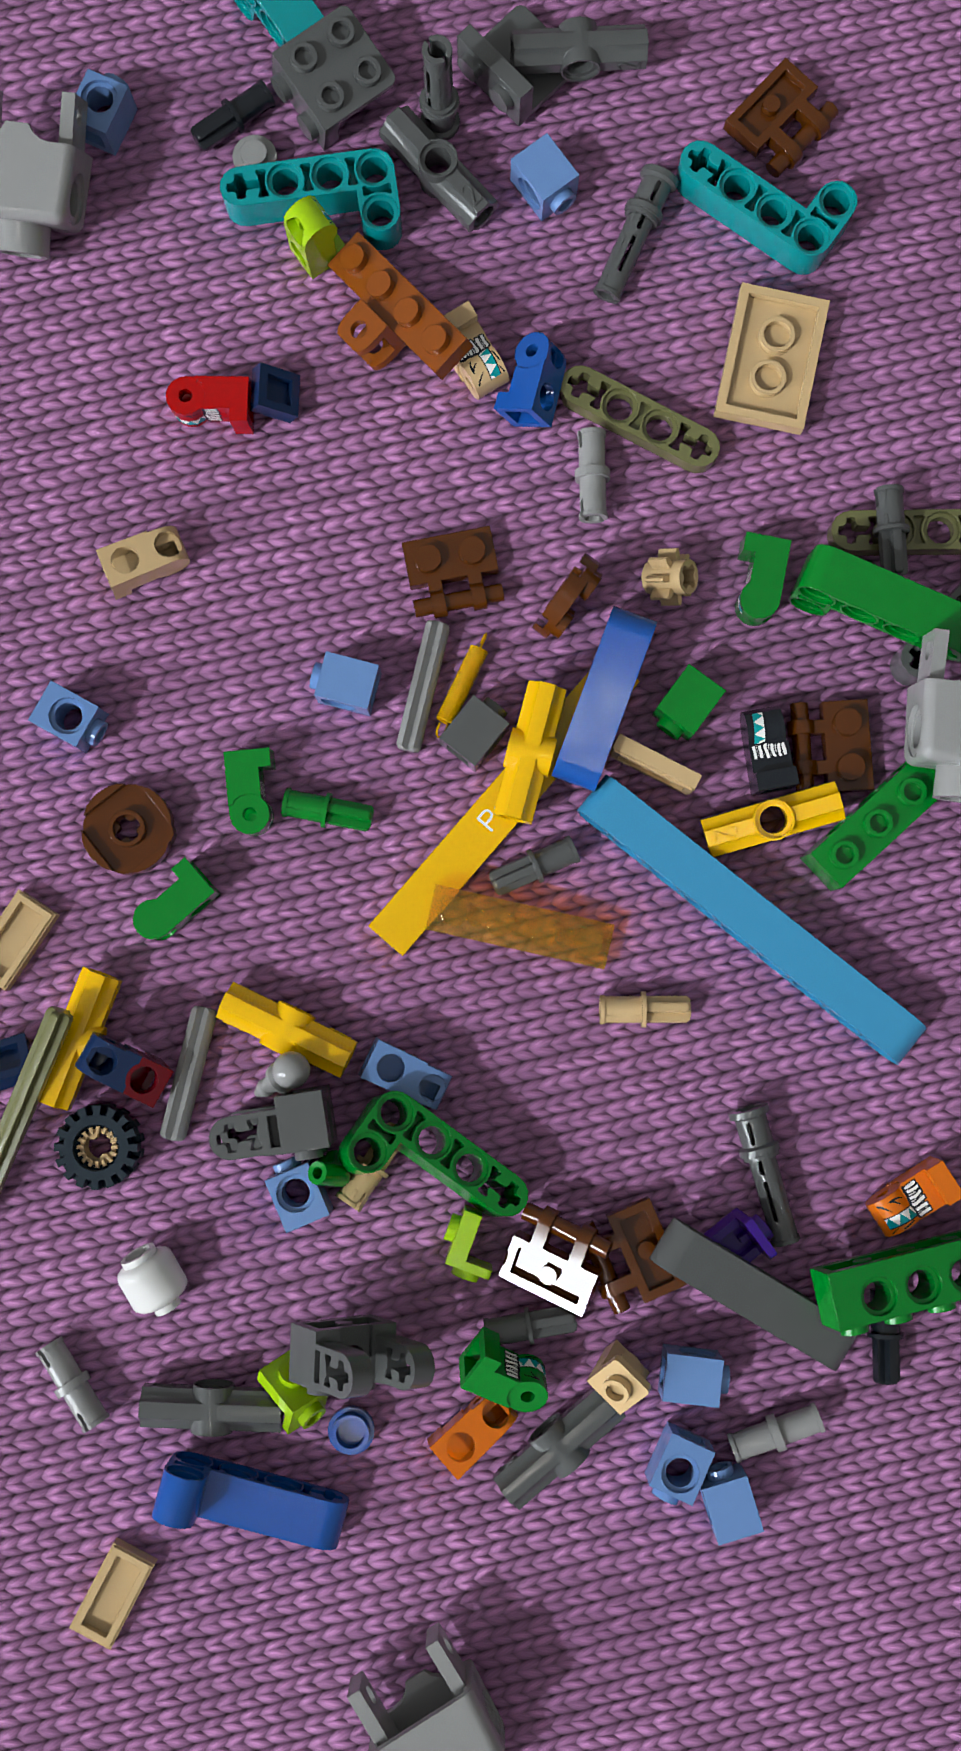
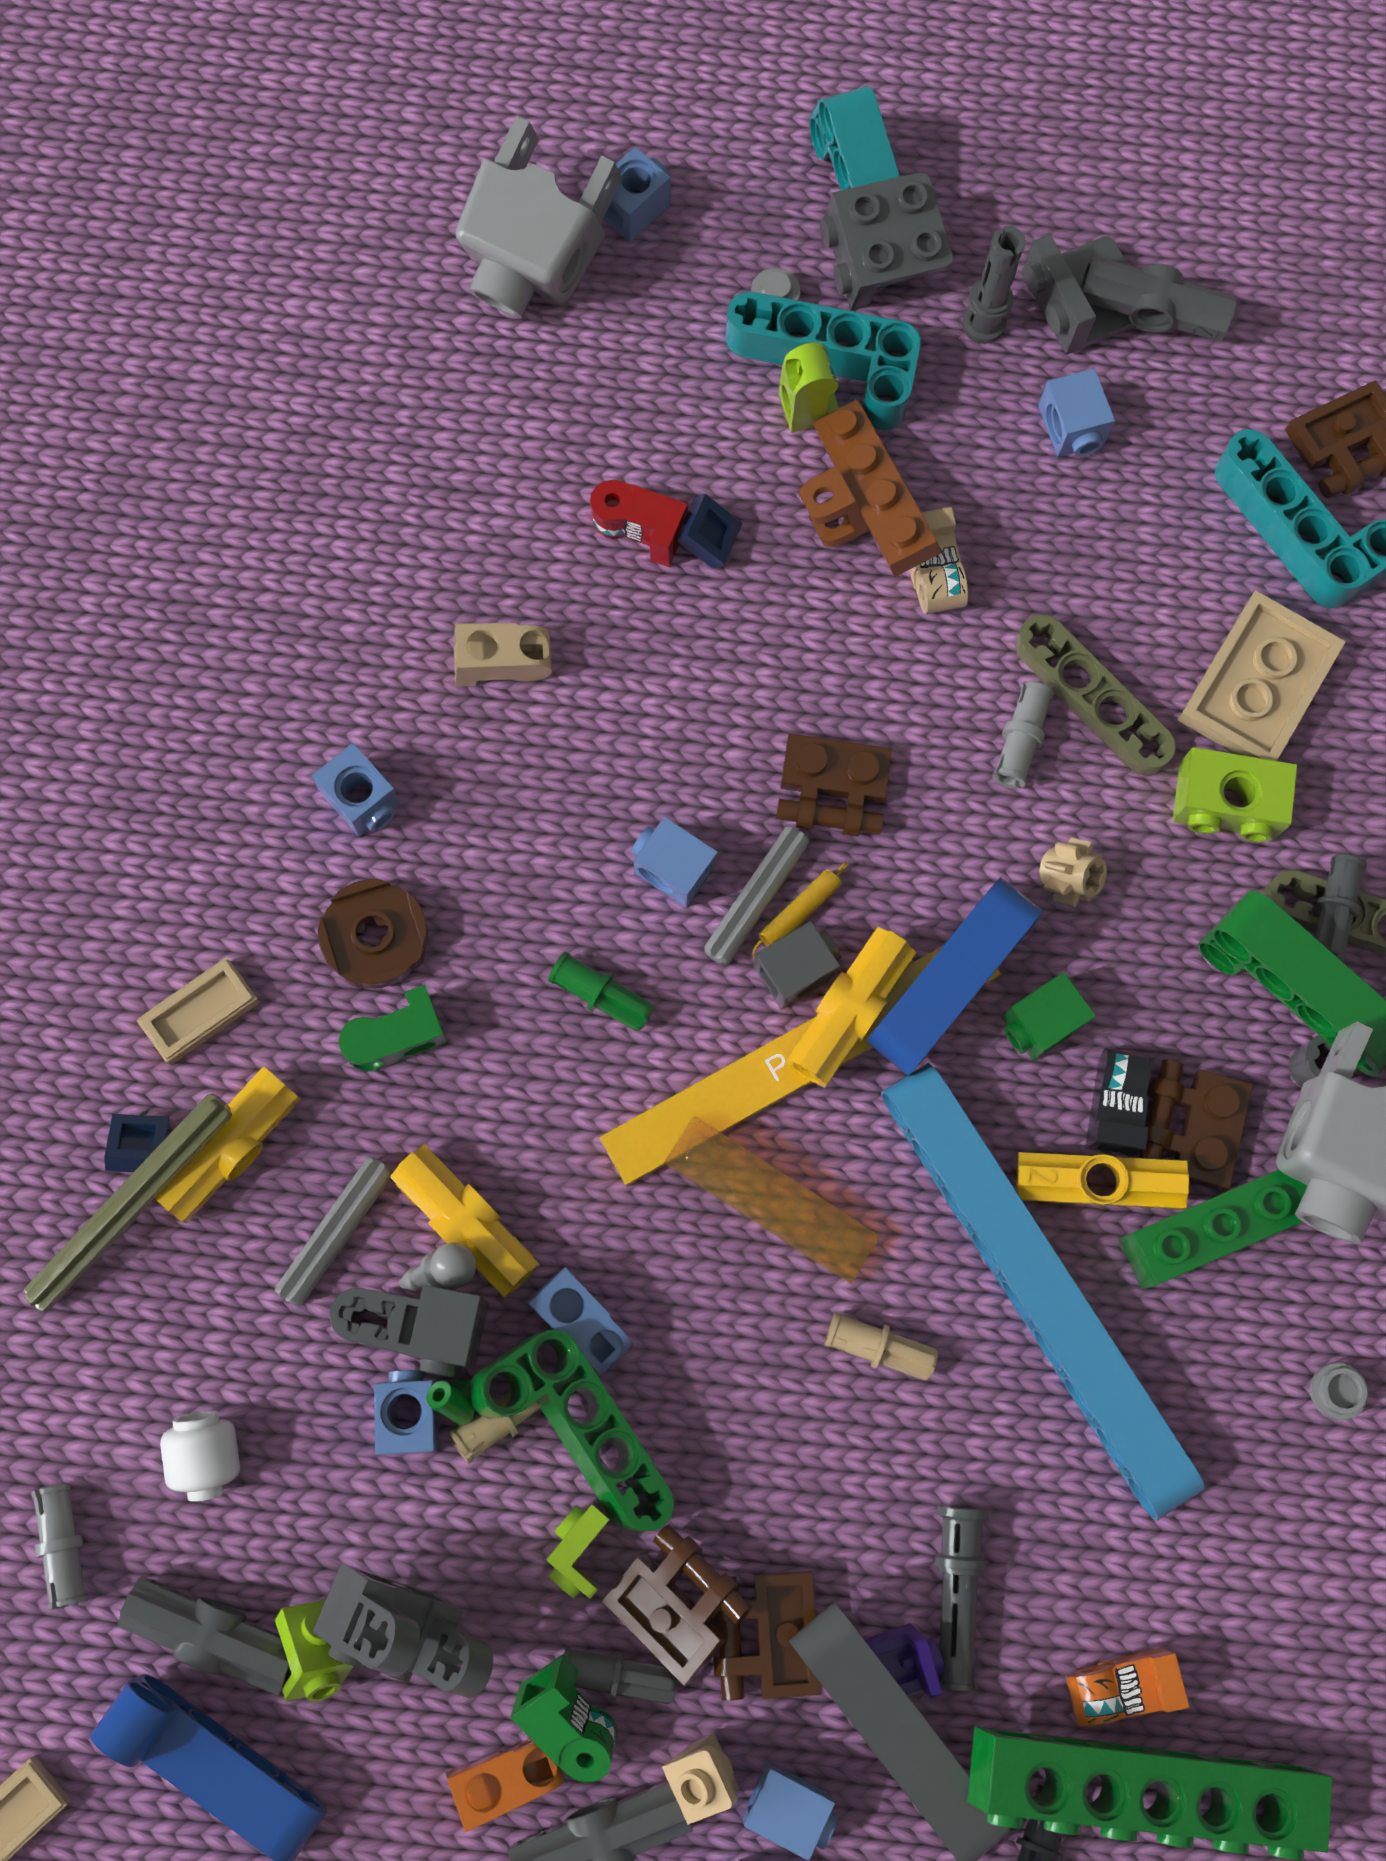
camera: 15 degrees right, 10 degrees down
(111, 1166) = (200, 1247): black bush -> none
(124, 1068) = (265, 1196): leg -> none
(233, 116) = (767, 244): black axle -> none
(246, 789) = (520, 937): green leg -> none
(351, 1430) = (360, 1726): blue plate -> none
(422, 150) = (975, 390): dark grey piece -> none
(534, 383) = (992, 617): blue leg -> none
(534, 866) = (811, 1137): dark grey axle -> none
(558, 609) = (938, 859): reddish brown plate -> none
(642, 213) = (1166, 488): dark grey pin -> none
(655, 765) = (986, 1072): tan tile -> none
(764, 577) = (1179, 911): green leg -> none
(802, 451) = (1263, 785): none -> lime brick

